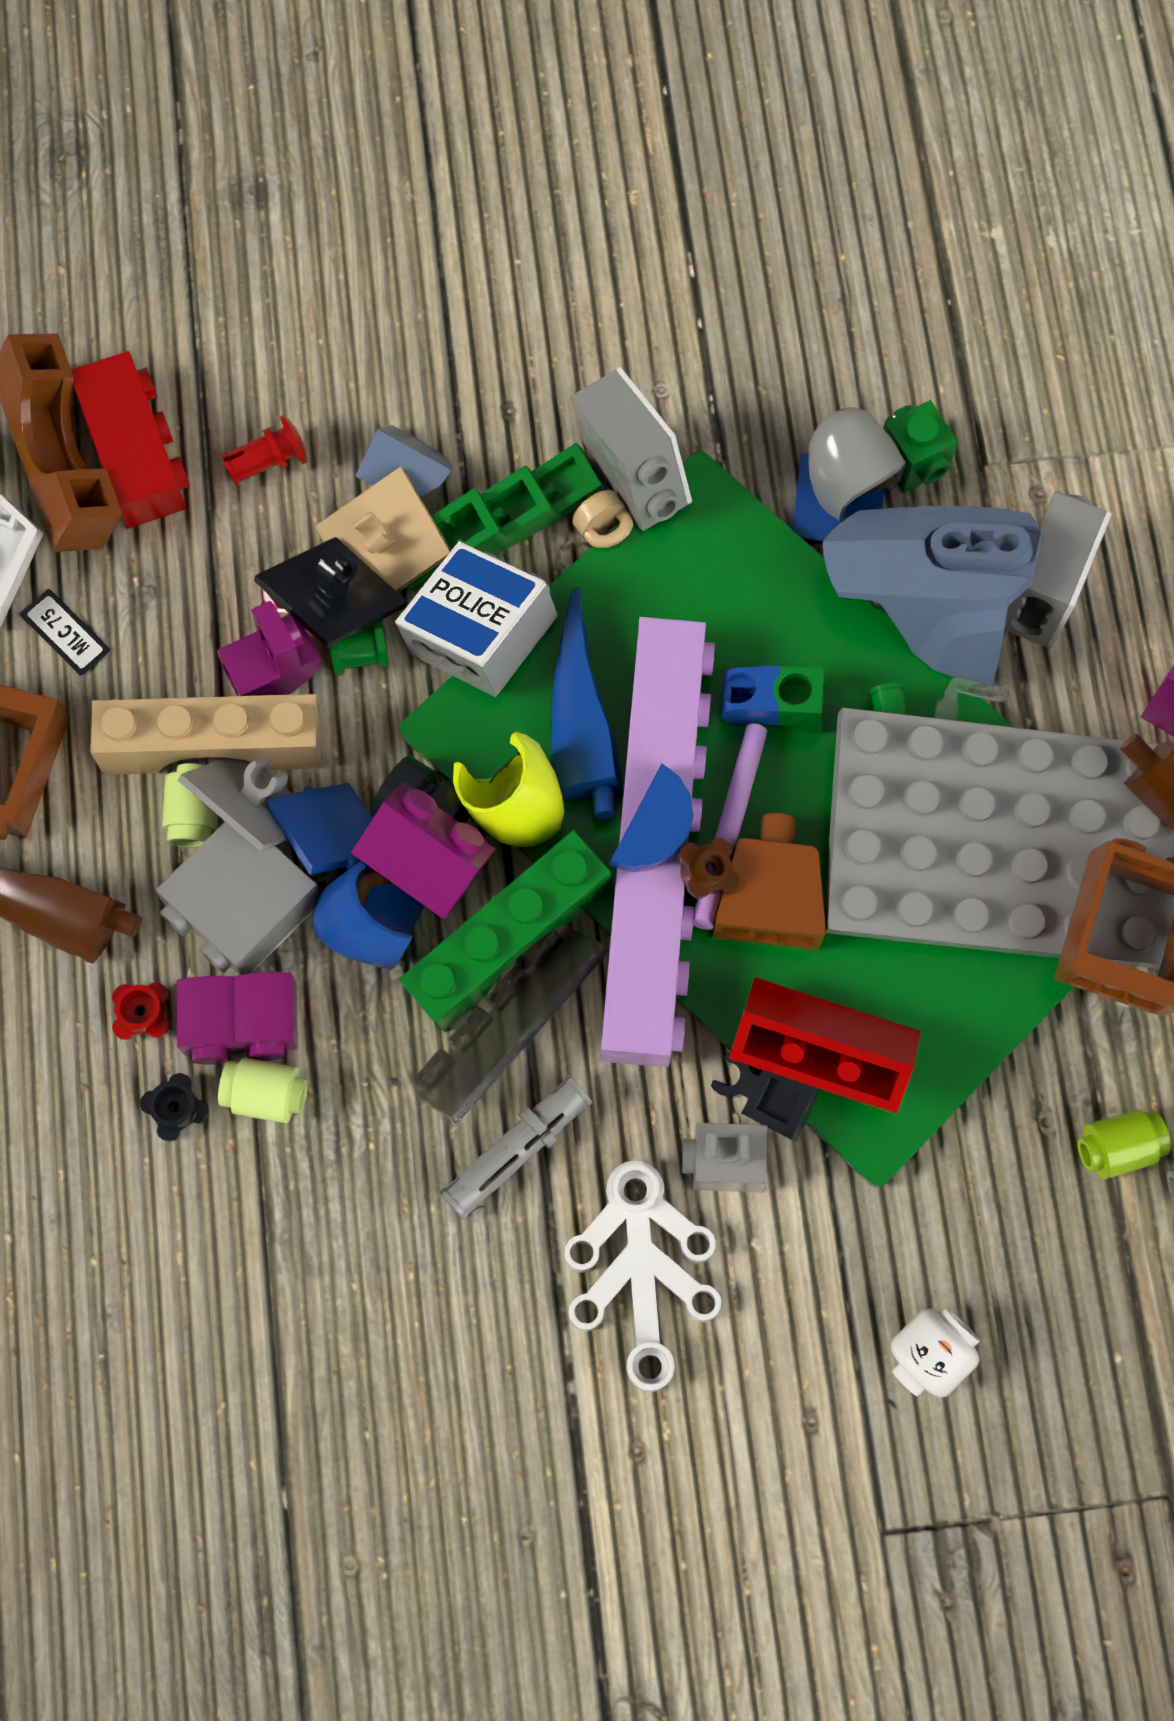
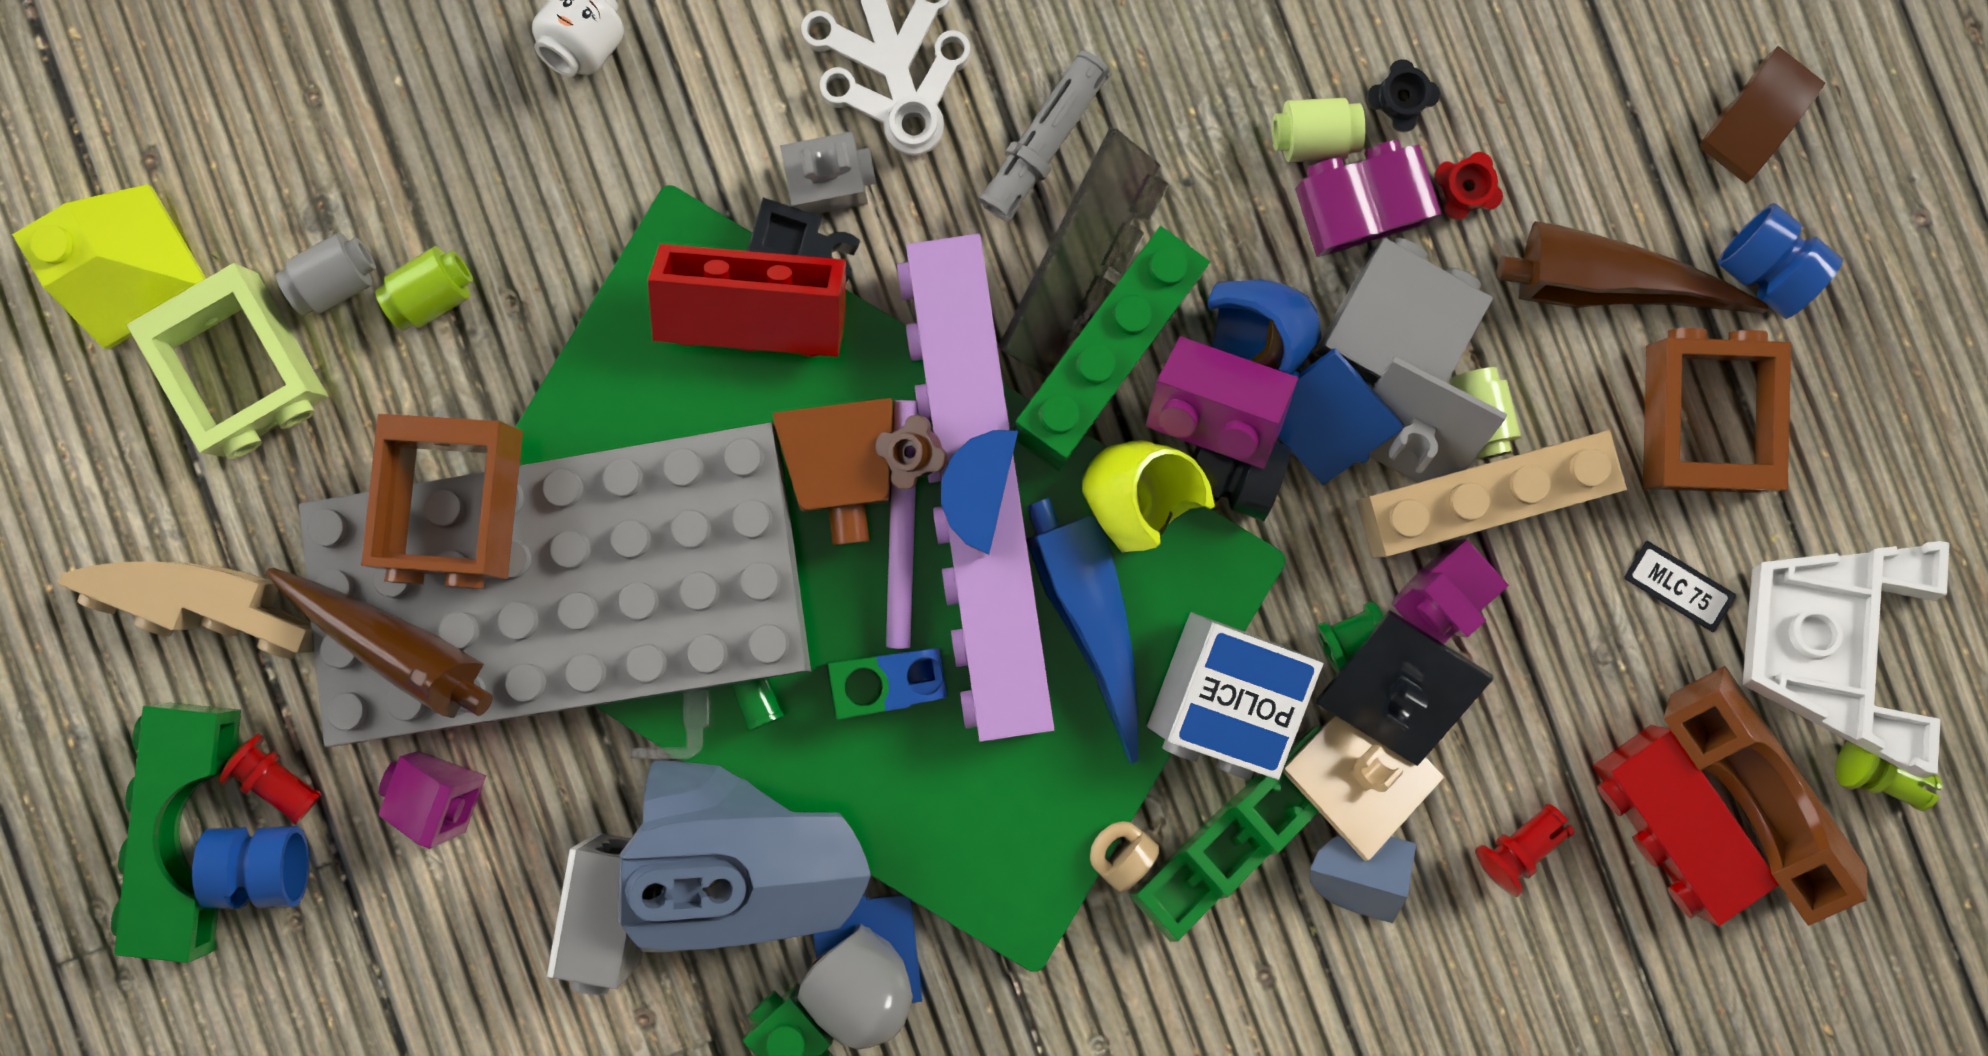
camera: 170 degrees right, 15 degrees up
(632, 448) = (1112, 938): light grey piece -> none

